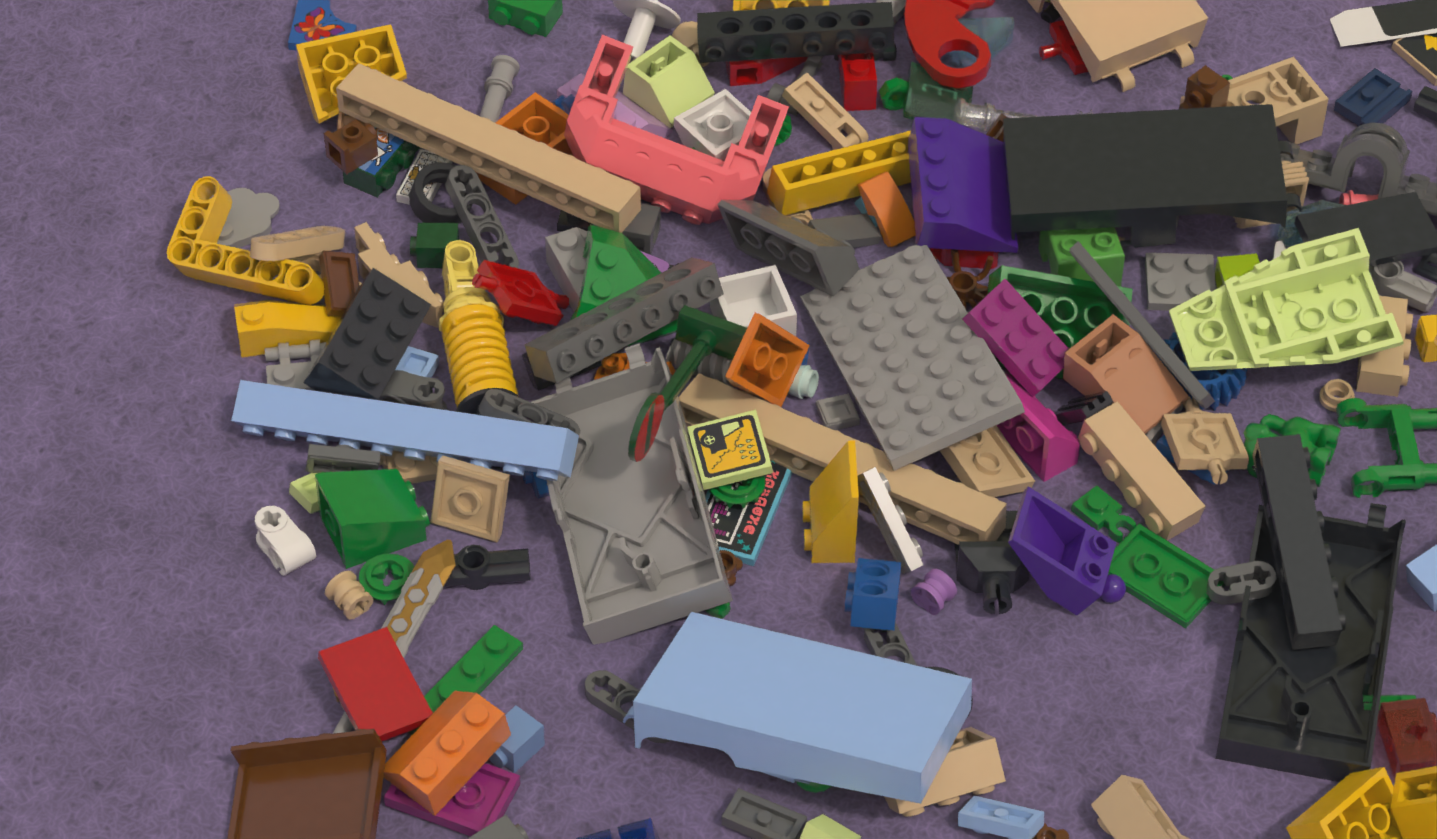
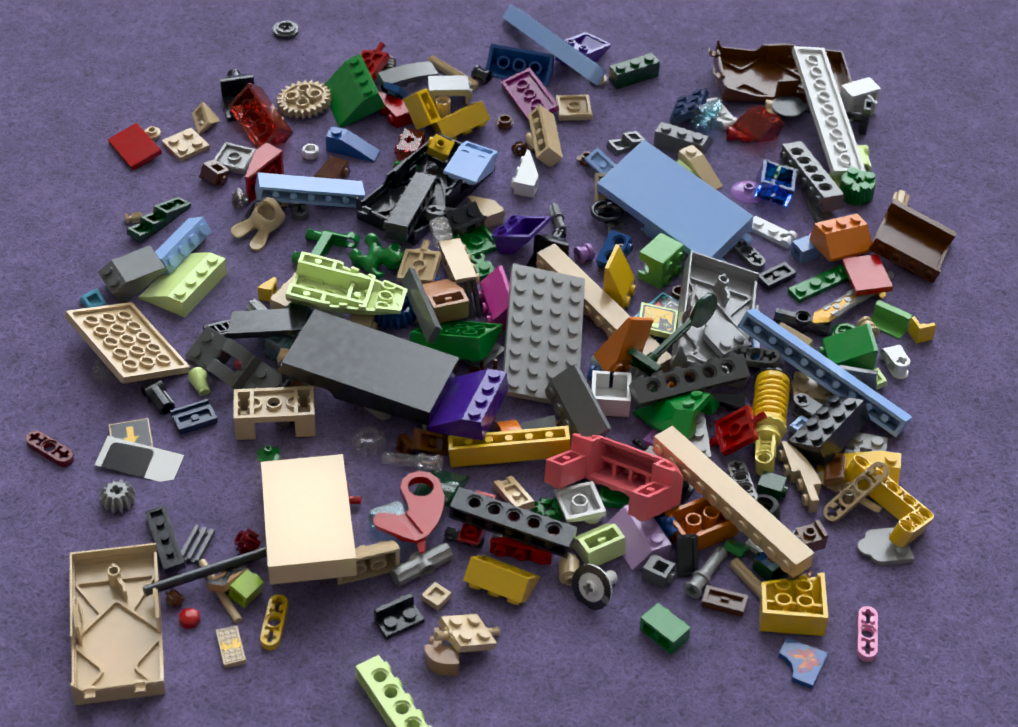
camera: 160 degrees left, 5 degrees down
(241, 77) = (872, 627): none -> bright pink beam
(247, 619) = (921, 332): none -> yellow panel
(309, 630) = (890, 319): none -> bright green panel
(454, 69) = (724, 600): none -> plate
(525, 88) = (686, 554): none -> black tile
(553, 663) = (776, 276): none -> black plate
(559, 70) = (659, 571): none -> dark grey brick
(597, 777) = (773, 232): none -> white plate
(603, 467) = (723, 337): none -> plate
(779, 587) = (663, 260): none -> bright green piece
(837, 412) = (588, 347): light grey tile -> none
(890, 520) = (594, 269): plate -> none
(1018, 337) = (487, 316): magenta plate -> none
(1025, 662) = (557, 217): none -> dark grey axle
(1134, 737) = (526, 177): none -> white slope
(1167, 625) = (489, 208): none -> tan slope
(1186, 571) = (465, 217): none -> black bracket
(1195, 818) = (523, 146): none -> reddish brown plate
(1205, 90) = (306, 396): reddish brown brick -> none
(1215, 535) = (440, 230): none -> clear gear
(1242, 652) = (471, 163): none -> light blue slope
(1340, 720) = (439, 147): none -> yellow brick
(1420, 157) = (199, 380): none -> yellowish green cone

